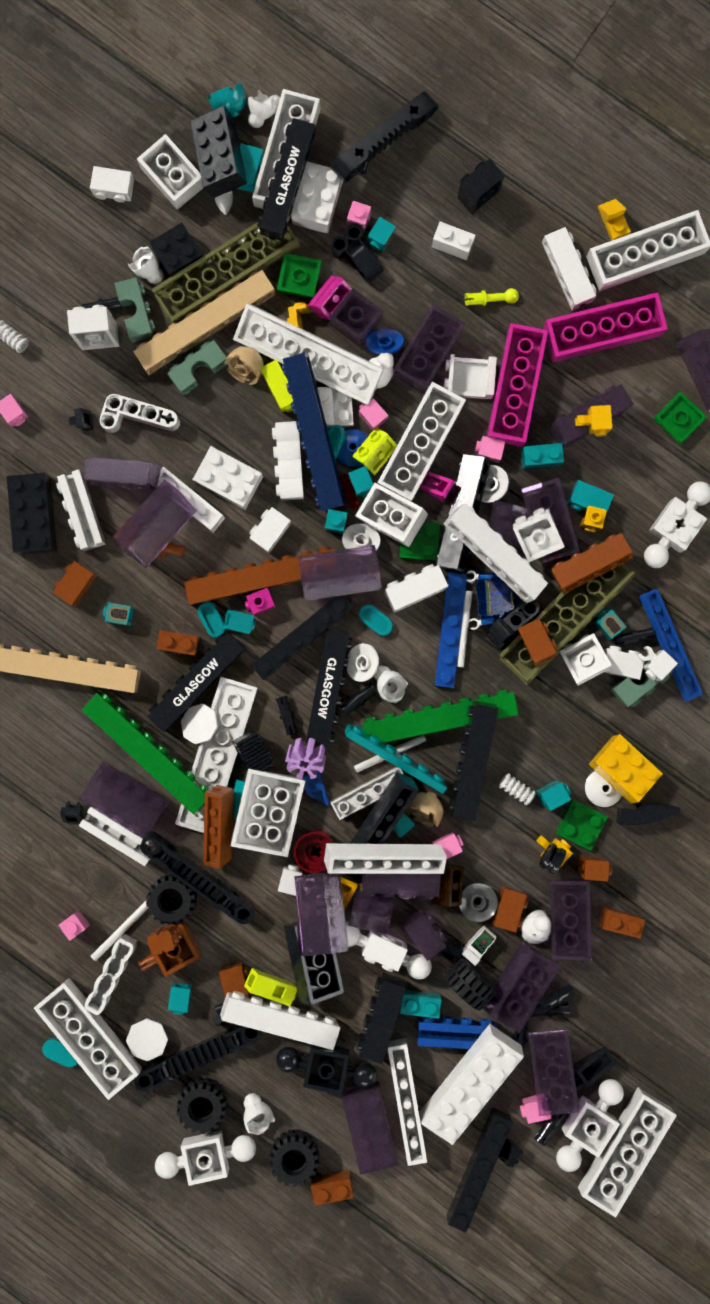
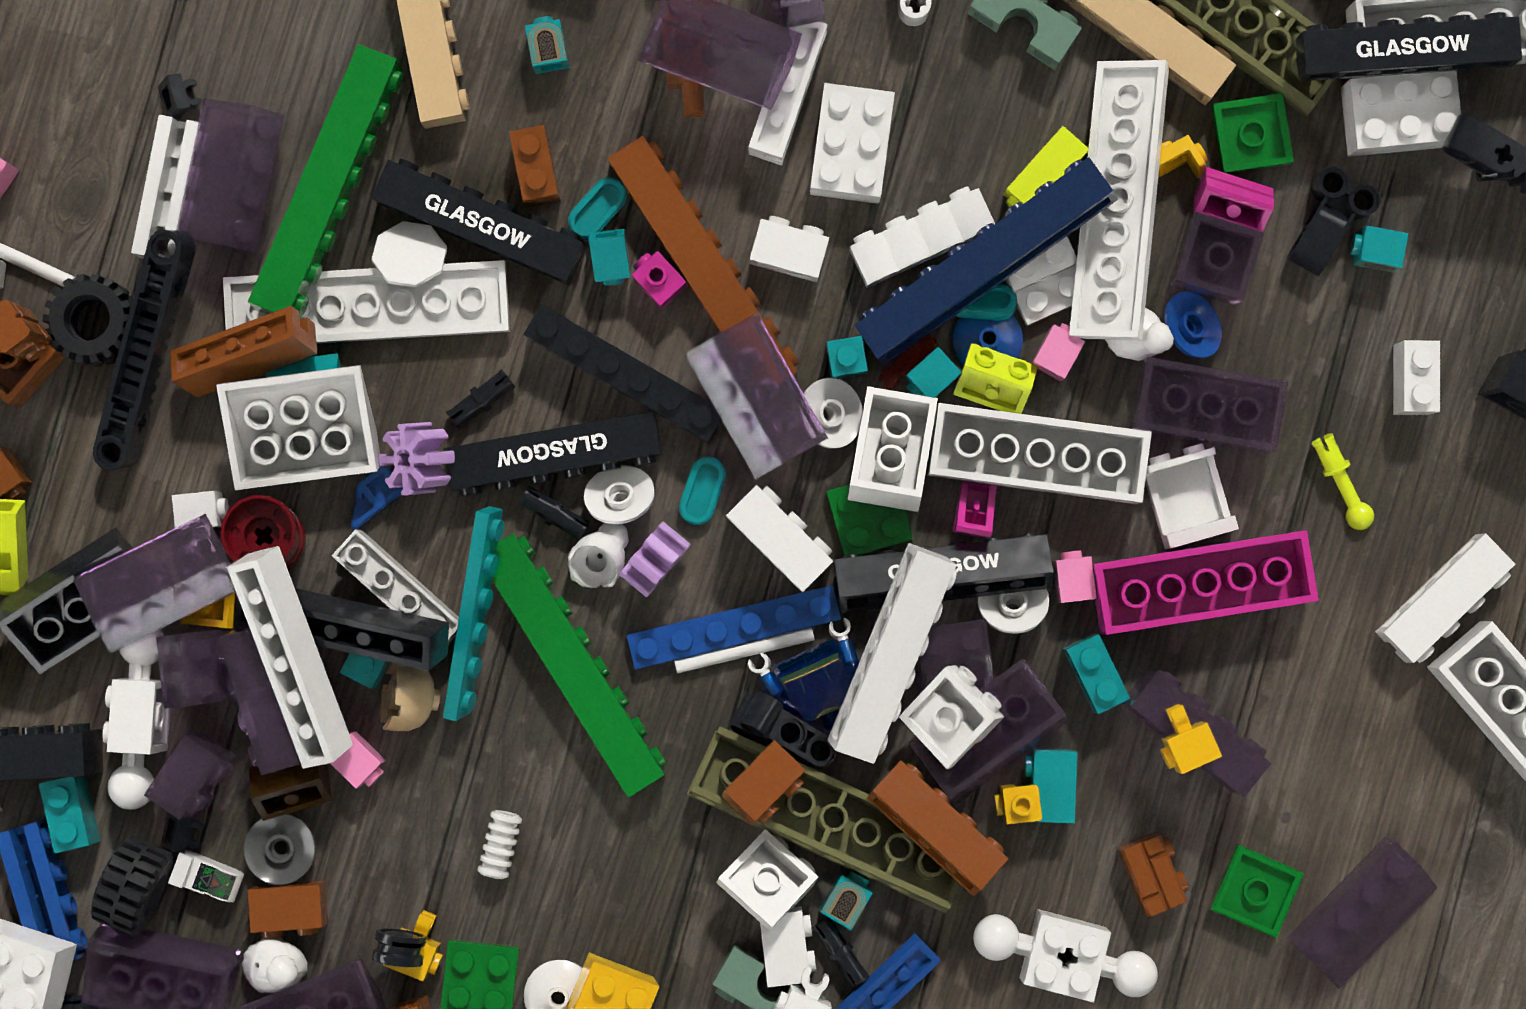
camera: 70 degrees right, 0 degrees up
(245, 364) = (1061, 98): tan cylinder -> none
(252, 751) = (394, 362): black brick -> none
(359, 214) = (1398, 197): bright pink brick -> none
(400, 748) = (492, 613): white bar -> none
(402, 656) = (654, 559): none -> lavender gear
(474, 760) = (520, 749): black brick -> none
(554, 795) = (511, 911): teal brick -> none
(605, 327) = (1364, 700): dark pink brick -> none
(652, 465) = (1153, 874): none -> dark orange brick

